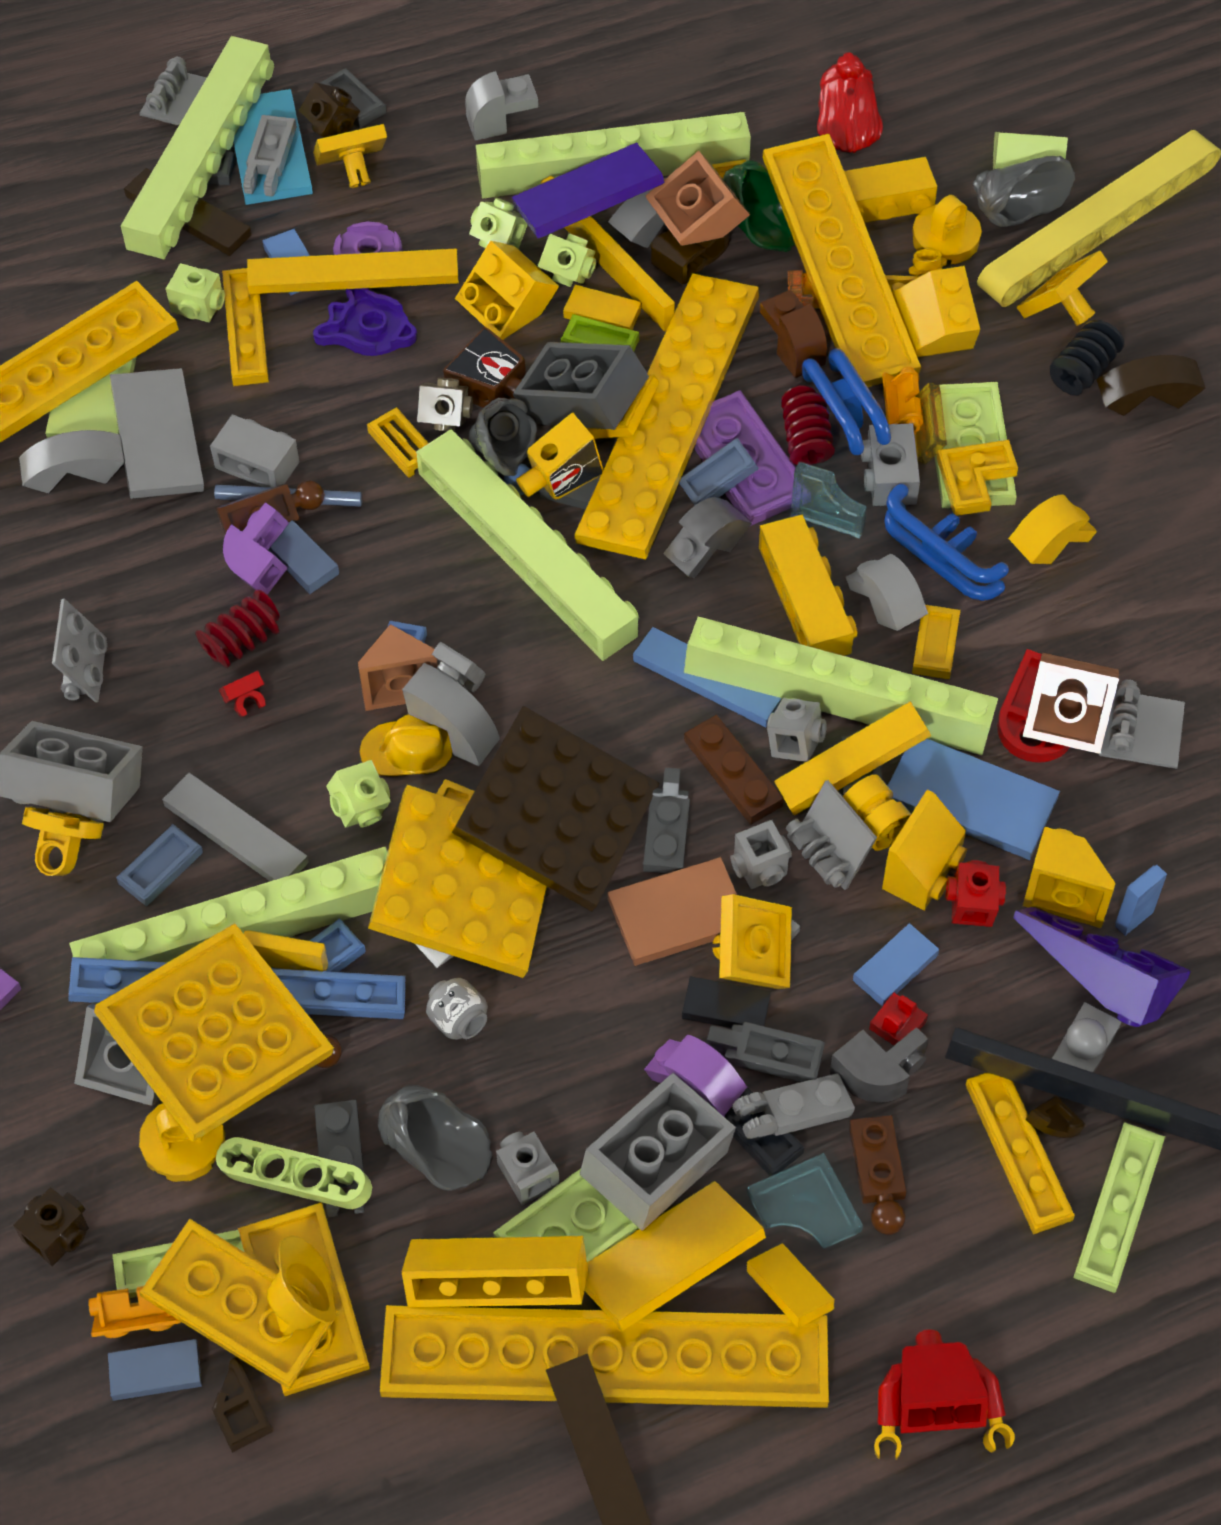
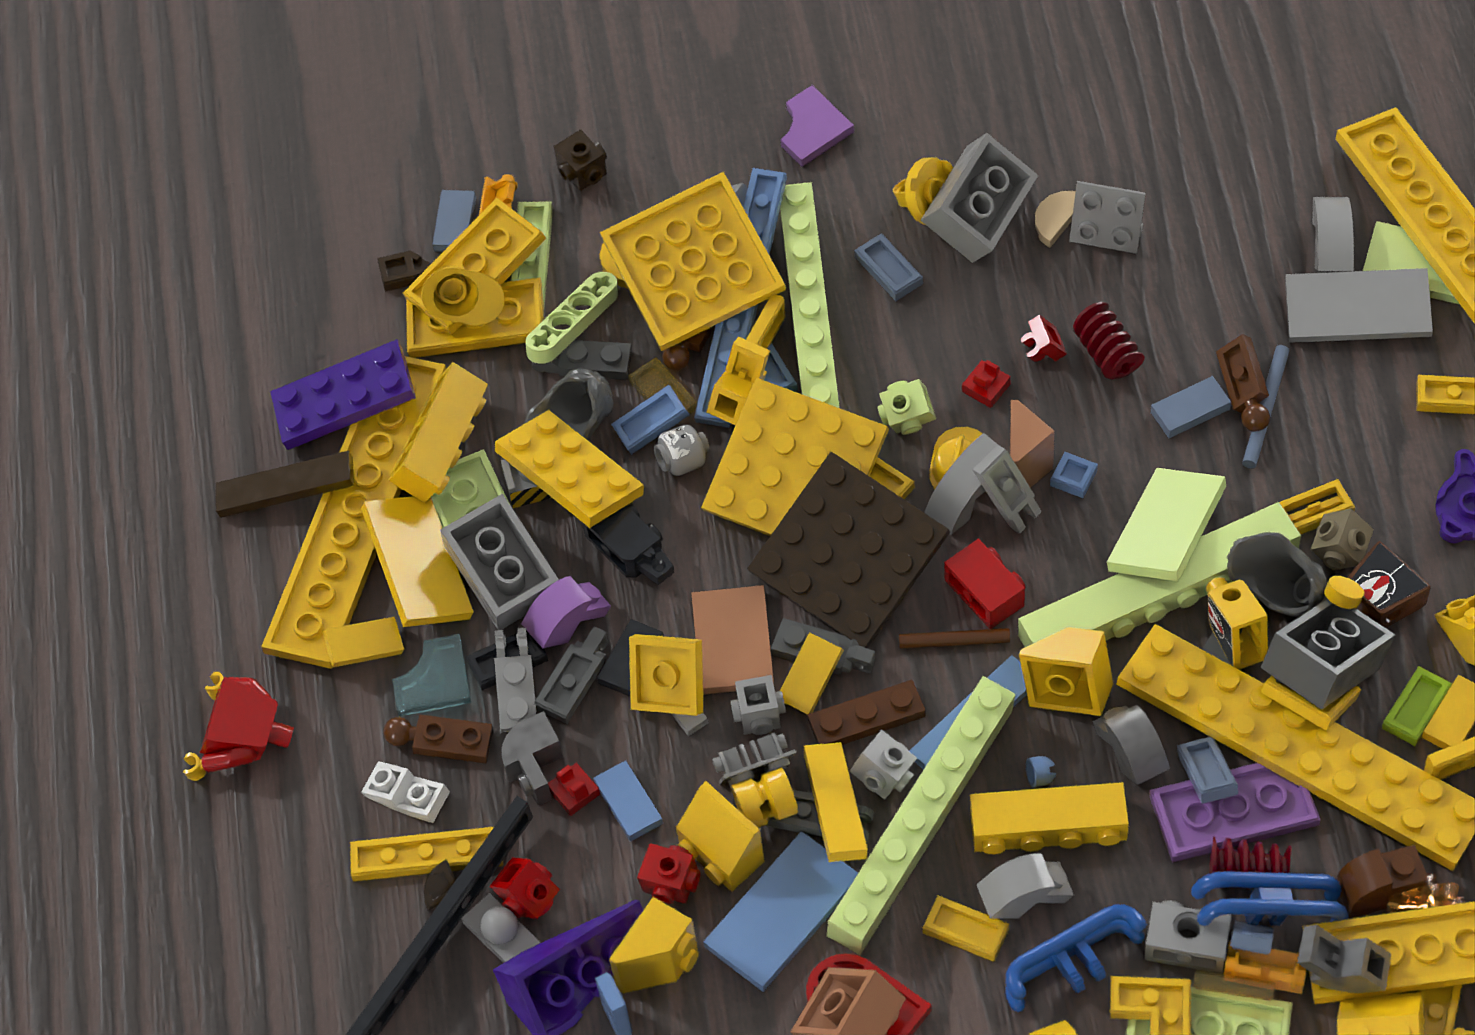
camera: 110 degrees right, 0 degrees up
(68, 712) = (1054, 216): none -> tan tile
(234, 829) = (906, 322): light grey tile -> none
(248, 550) = (1190, 357): medium lavender brick -> none
(254, 452) = (1315, 380): light grey brick -> none
(304, 740) = (986, 383): none -> red tile
(369, 957) = (733, 387): none -> yellow brick
(371, 1059) = (654, 377): none -> clear yellow tile
(418, 1053) = (650, 419): none -> medium blue tile
(455, 1416) = (342, 394): none -> dark purple plate
(461, 537) = (1166, 524): none -> yellowish green tile
(513, 382) = (1344, 592): none -> yellow tile
(518, 1107) = (569, 468): none -> yellow plate
(560, 684) = (985, 583): none -> red brick
(585, 1038) = (631, 545): none -> black hinge
(623, 710) = (954, 638): none -> reddish brown bar
(654, 578) = (1068, 671): none -> yellow slope
(705, 819) = (810, 673): none -> yellow tile
(755, 609) = (1038, 771): none -> medium blue hinge
(824, 503) = (1147, 846): clear light blue tile -> none
(893, 399) = (1252, 937): none -> sand blue tile
(894, 332) = (1343, 965): none -> flat silver brick
(955, 1191) = (403, 792): none -> white slope
(1034, 1034) = (525, 888): none -> red brick
(1119, 1207) = (346, 916): yellowish green tile -> none

